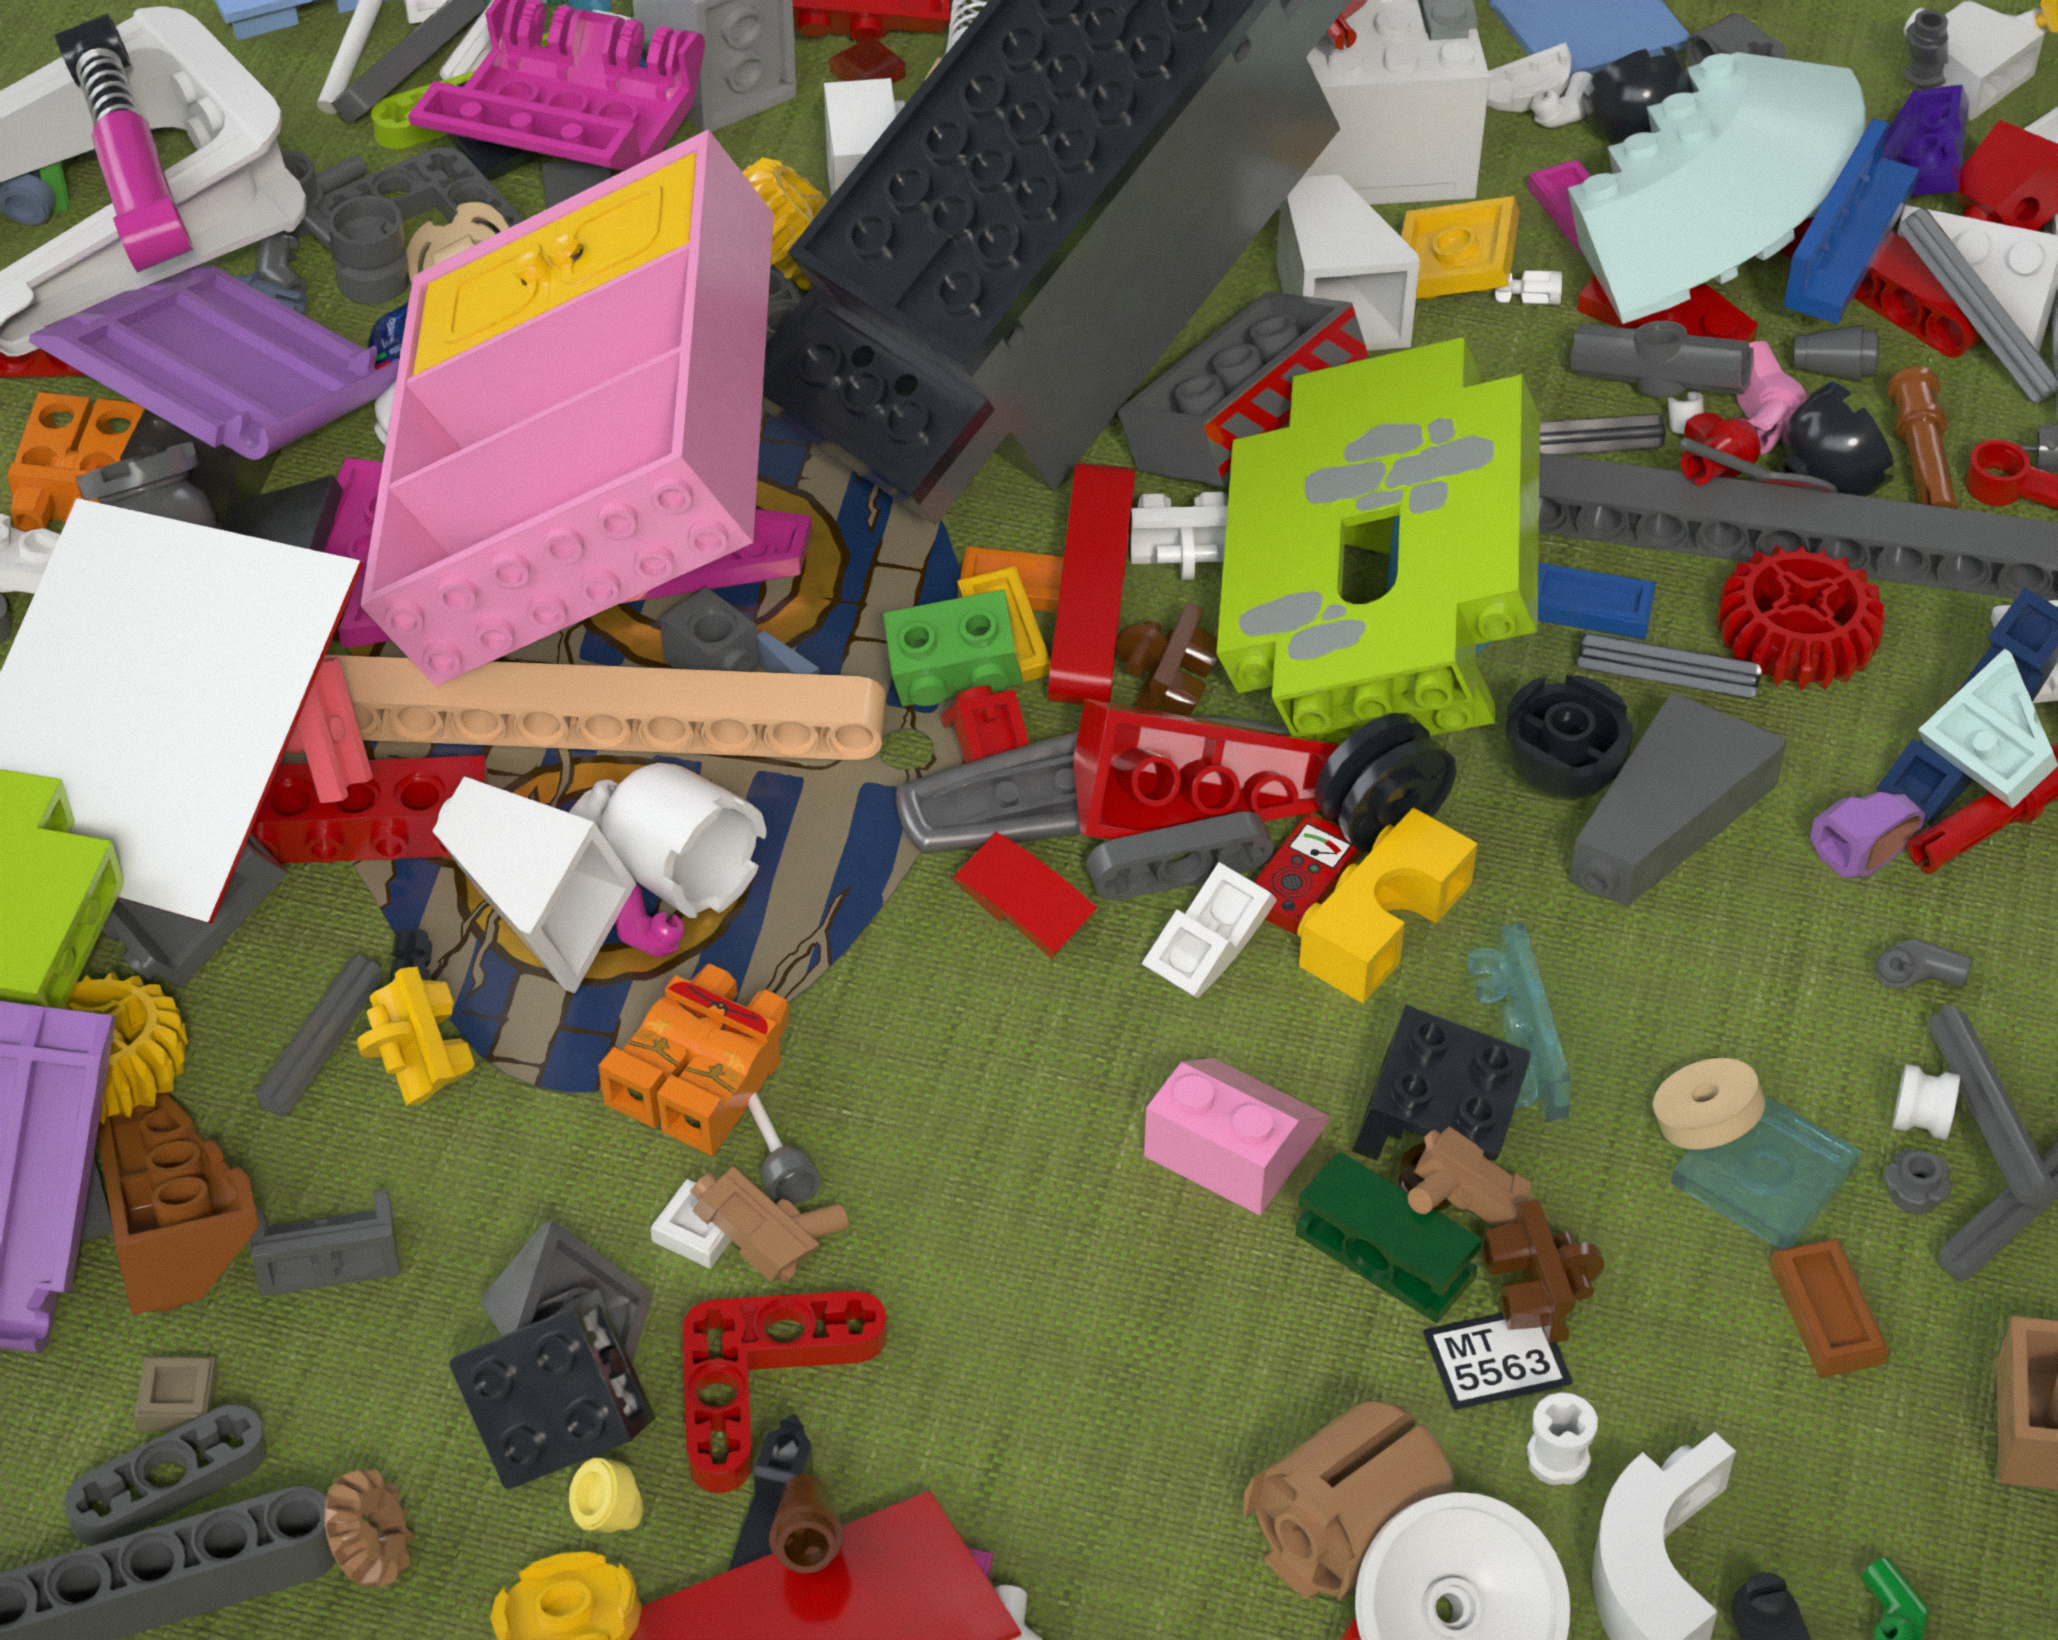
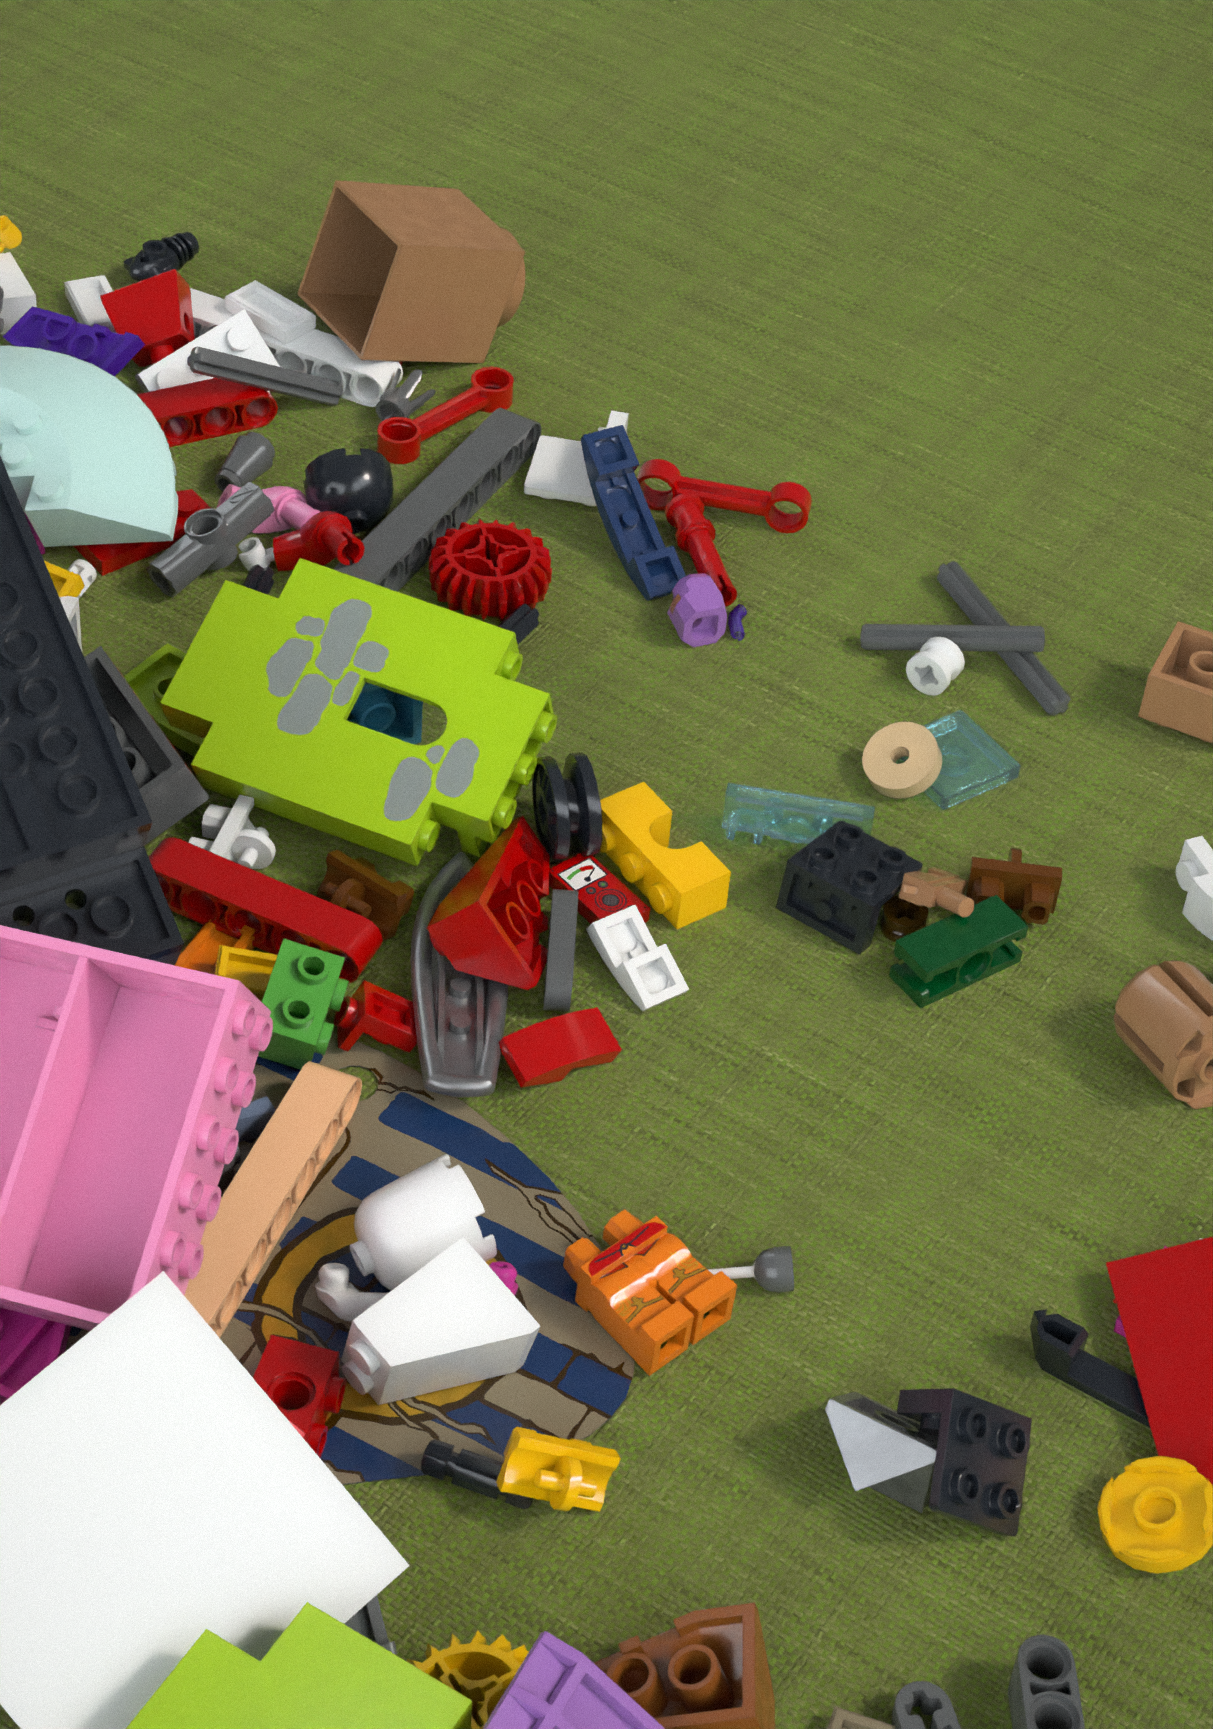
camera: 75 degrees left, 5 degrees down
(318, 1035) = (502, 1553): dark grey axle -> none
(326, 1250) = (741, 1572): dark grey hinge -> none
(365, 1552) = (1057, 1620): medium nougat gear -> none
(605, 1497) = (1056, 1463): light yellow tile -> none
(686, 1233) = (798, 1343): white tile -> none
(750, 1348) = (932, 1345): red beam -> none
(769, 1234) = (826, 1294): medium nougat piece -> none
(805, 1526) = (1134, 1332): reddish brown cone -> none
(1229, 1131) = (834, 1002): bright pink slope -> none
(1489, 1363) = (1061, 944): sticker -> none
(1563, 1431) = (1150, 929): white bush -> none
(1567, 737) = (580, 701): black cylinder -> none
(1673, 796) = (624, 686): dark grey slope -> none
(1757, 473) = (367, 528): dark grey piece -> none
(1828, 1308) = (1072, 772): dark orange tile -> none
(1849, 229) = (181, 420): blue fence -> none
(1899, 885) = (736, 625): none -> dark purple leg
(1915, 1193) = (988, 697): dark grey plate -> none
(1920, 960) = (811, 628): dark grey arm -> none
(1921, 427) = (310, 445): dark orange pin -> none
(1993, 732) = (666, 512): light aqua wing -> none

